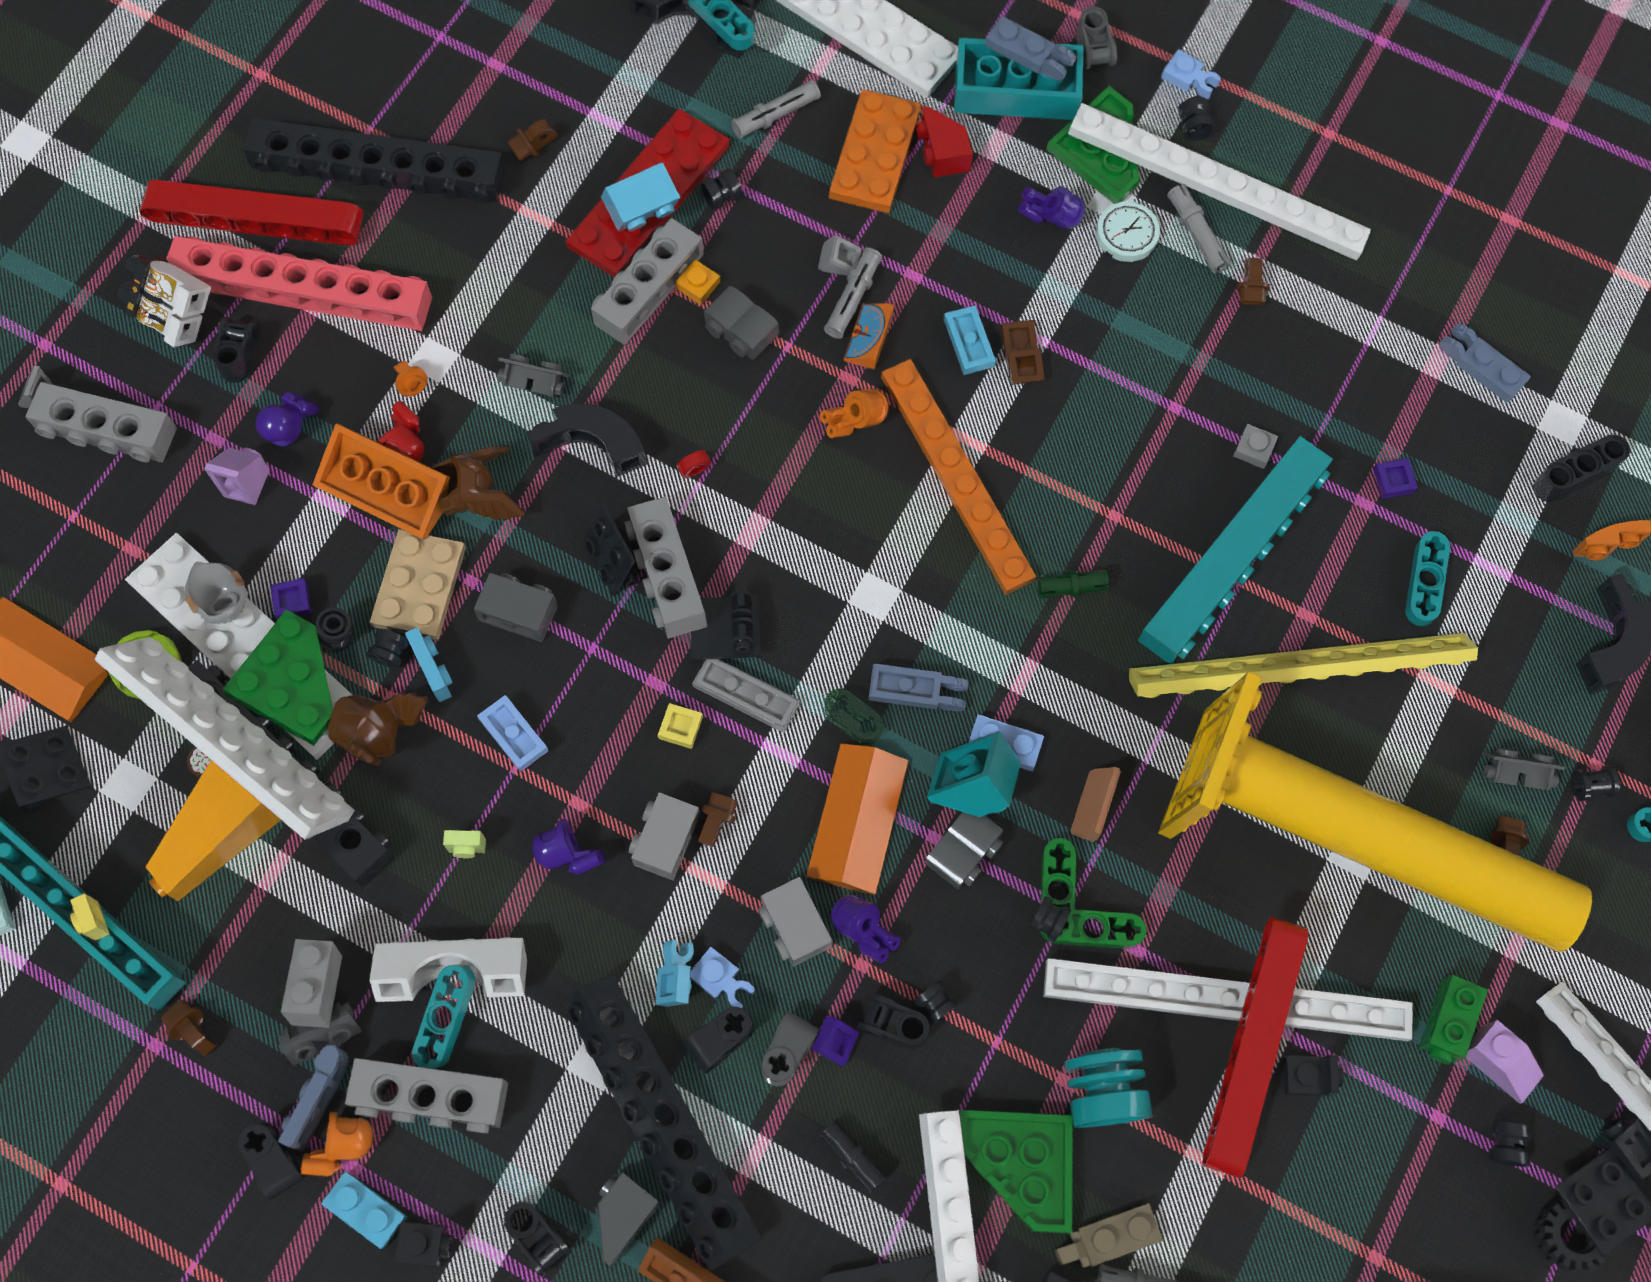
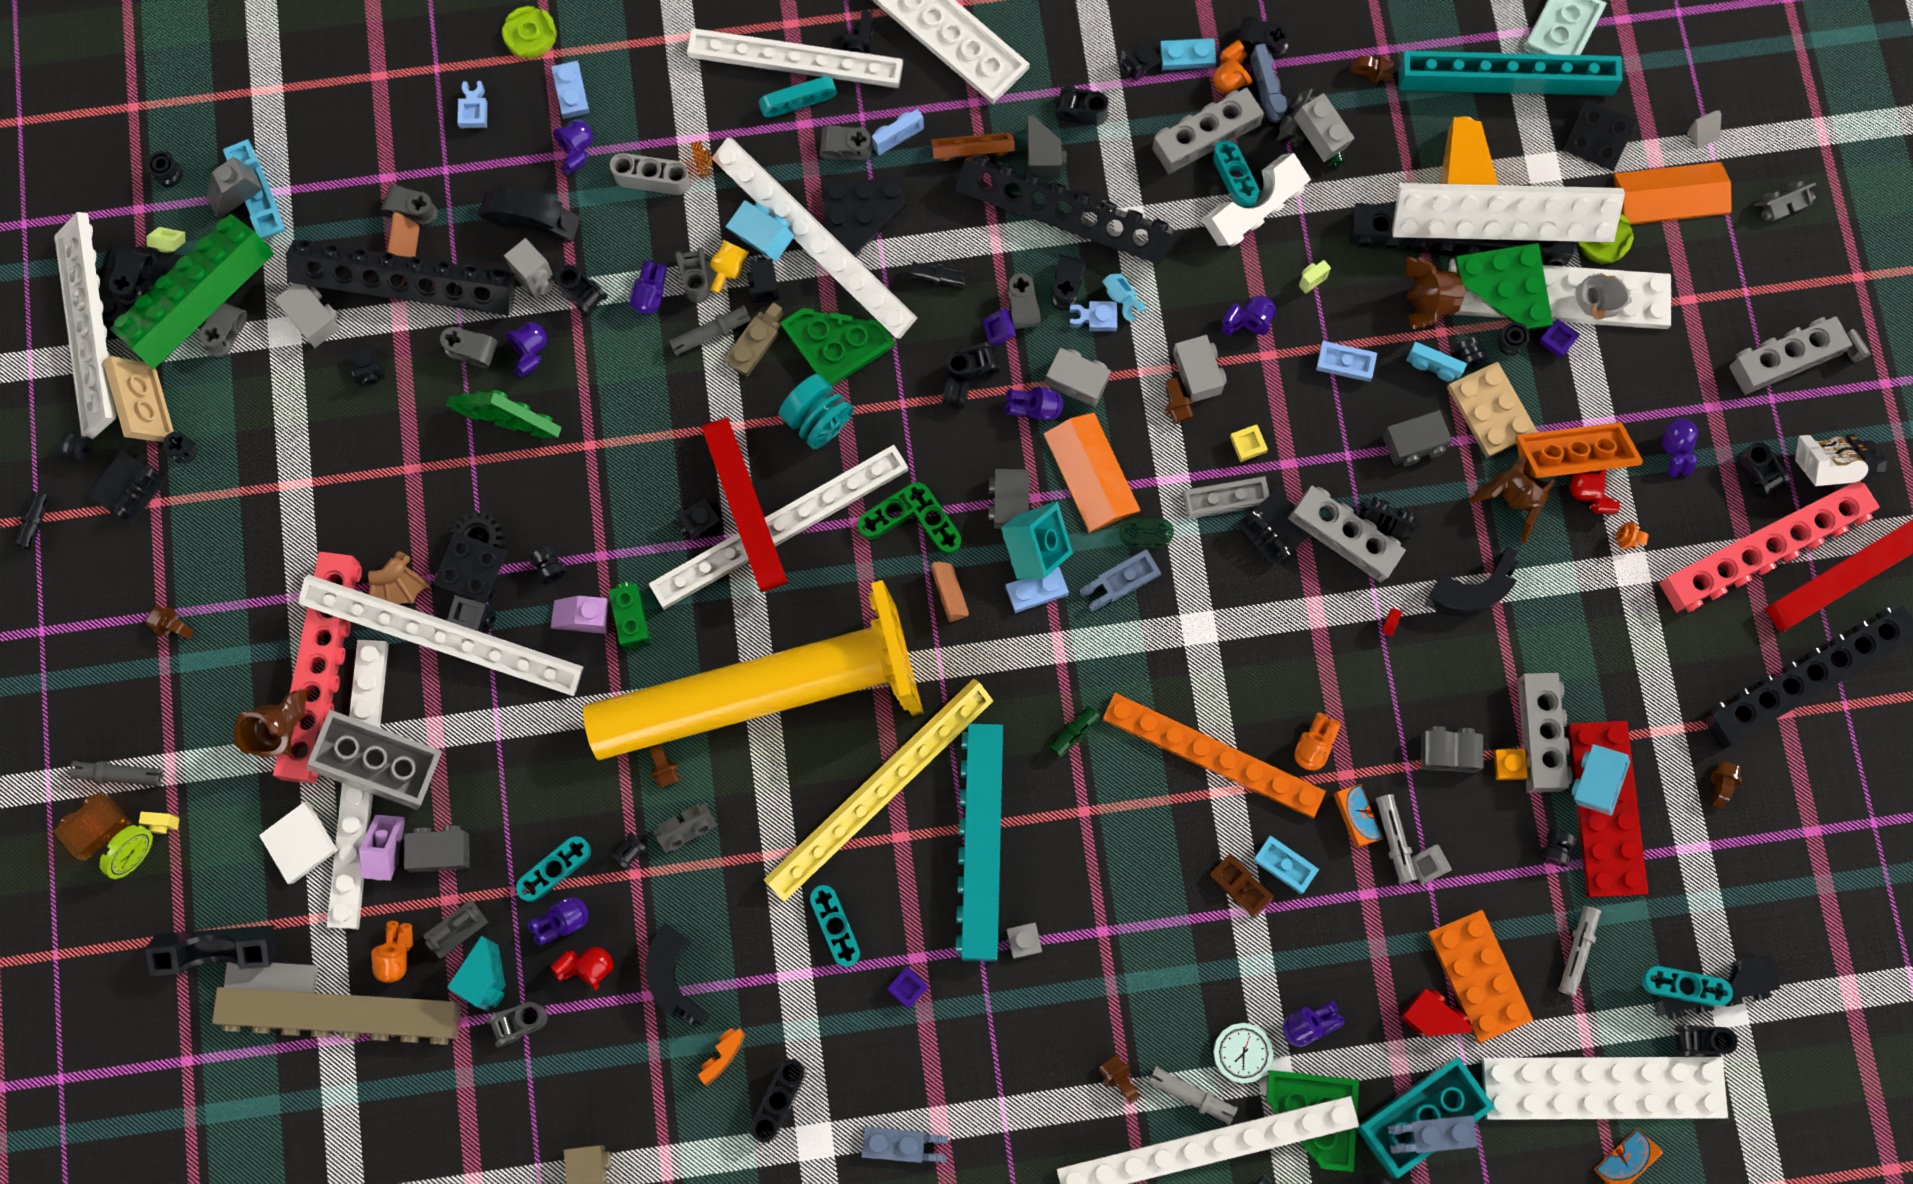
camera: 145 degrees right, 5 degrees up
(88, 917) = (1479, 63): light yellow plate -> none
(238, 474) = (1670, 385): lavender slope -> none
(519, 371) = (1566, 600): dark grey hinge -> none
(1050, 919) = (924, 486): black wheel -> none

